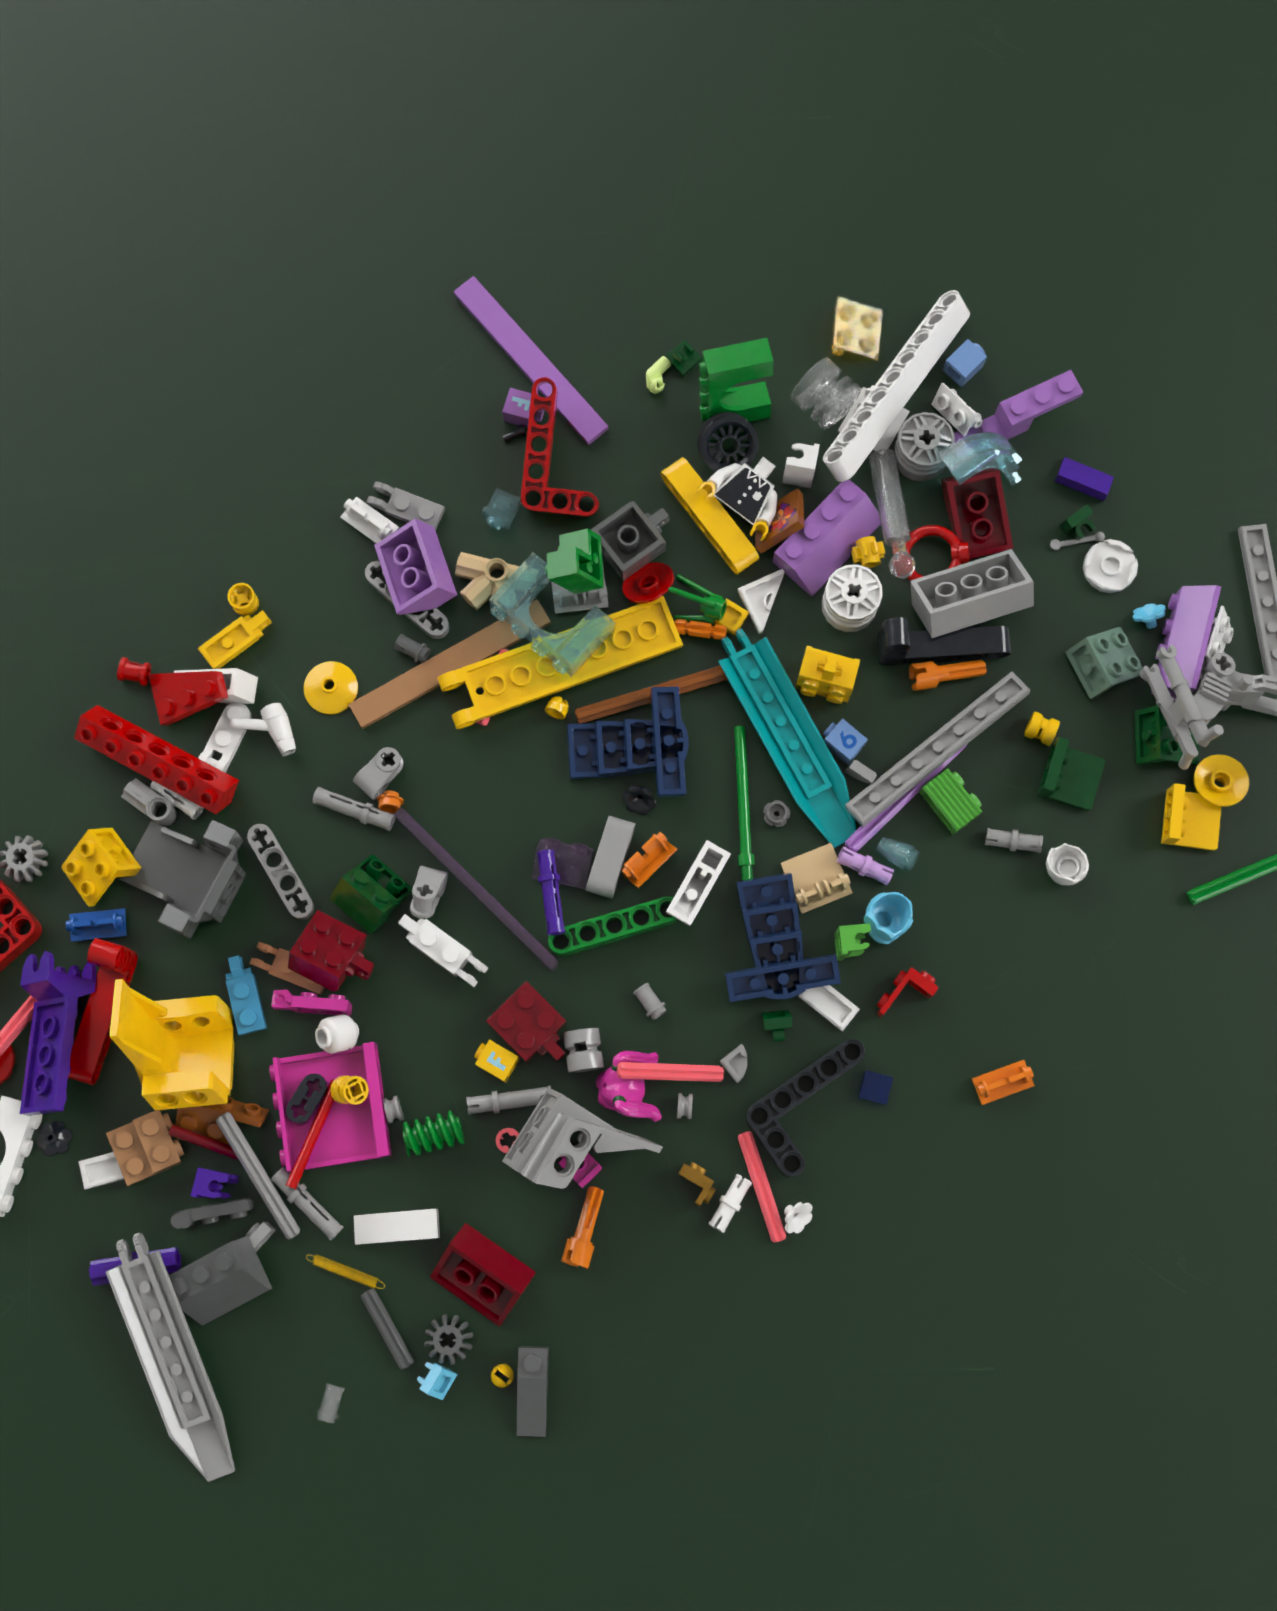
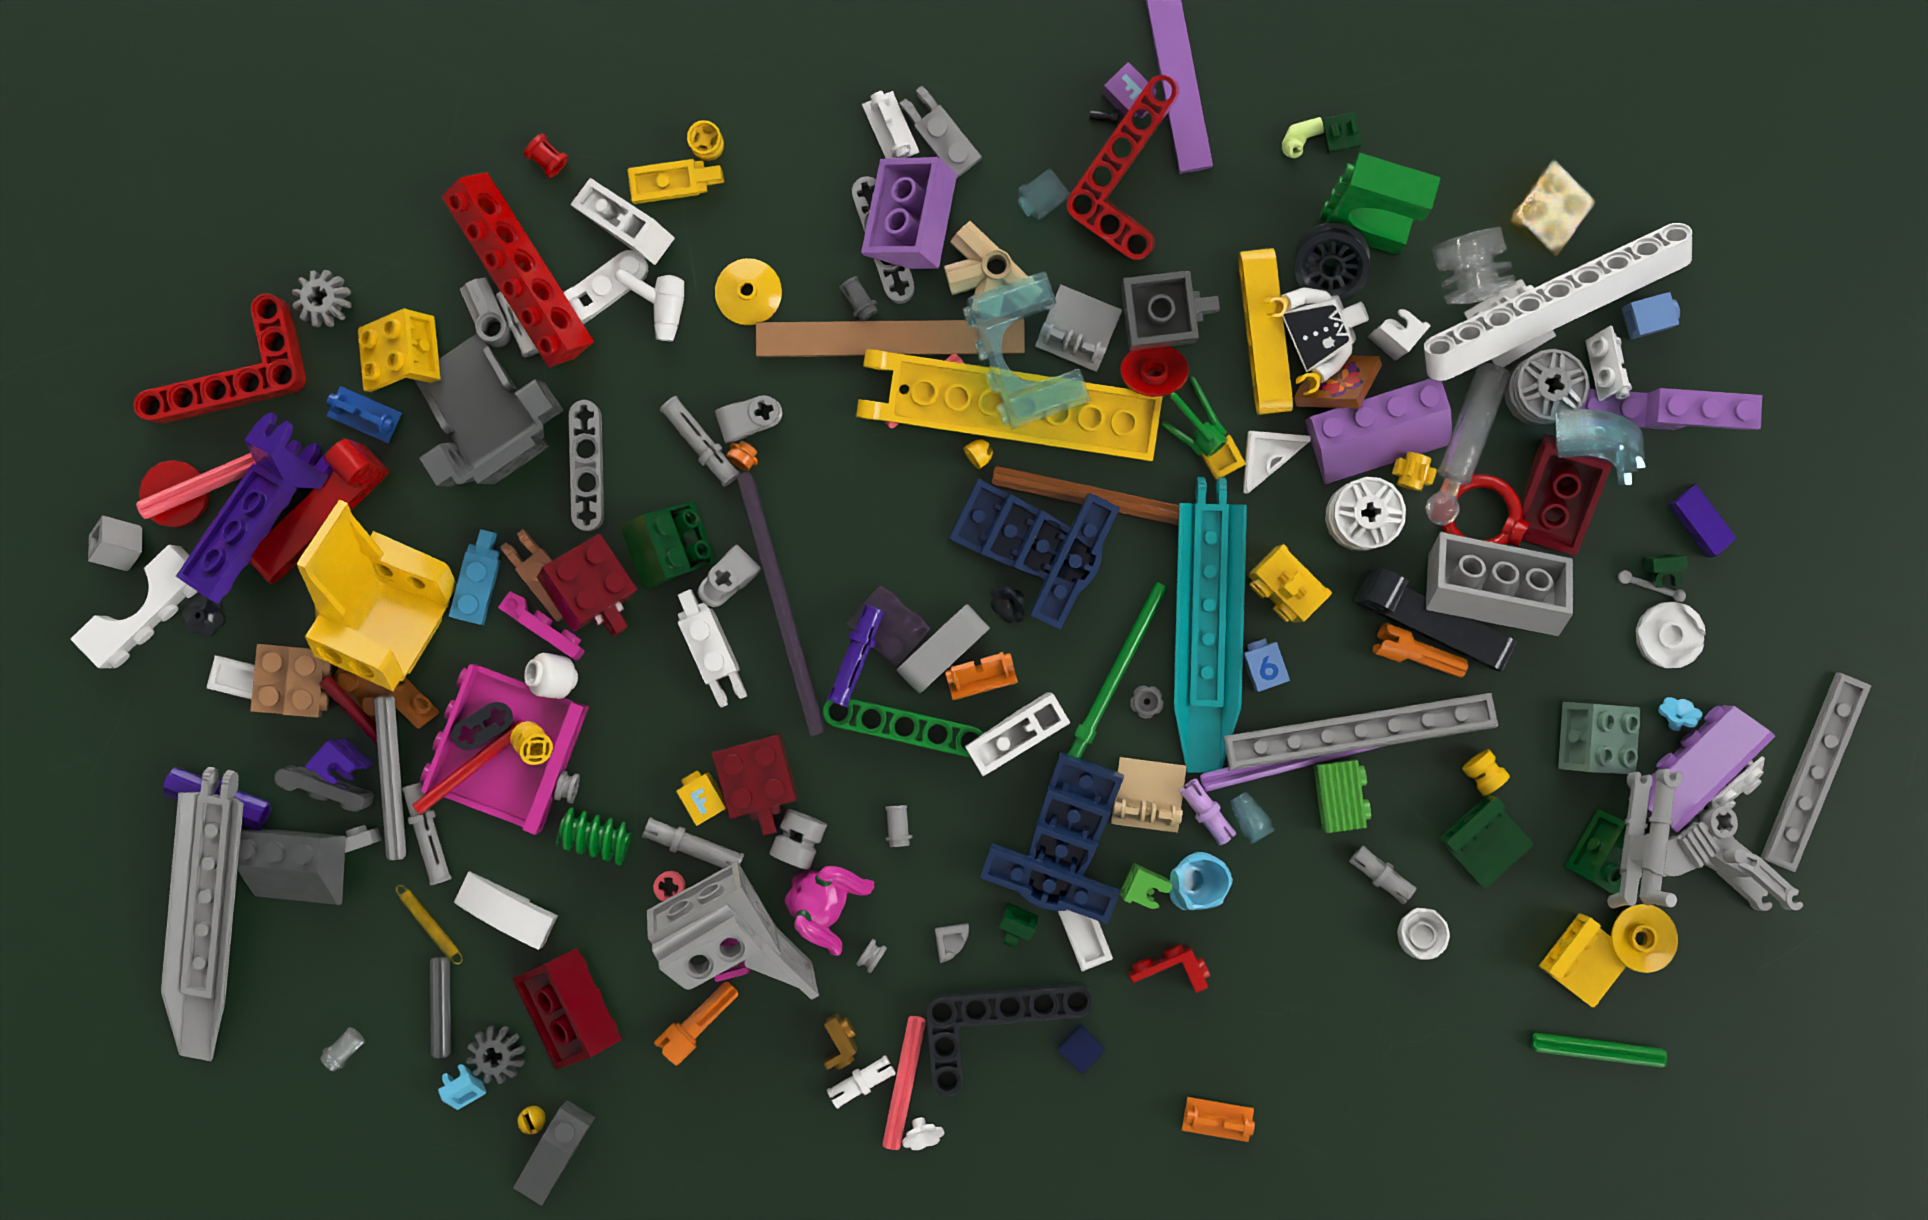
camera: 30 degrees right, 10 degrees up
(186, 693) = (586, 213): red wing -> none
(577, 562) = (1087, 310): green brick -> none
(676, 1072) = (874, 914): coral axle -> none
(701, 629) = (1182, 454): orange axle -> none
(860, 772) = (1262, 709): light grey tile -> none

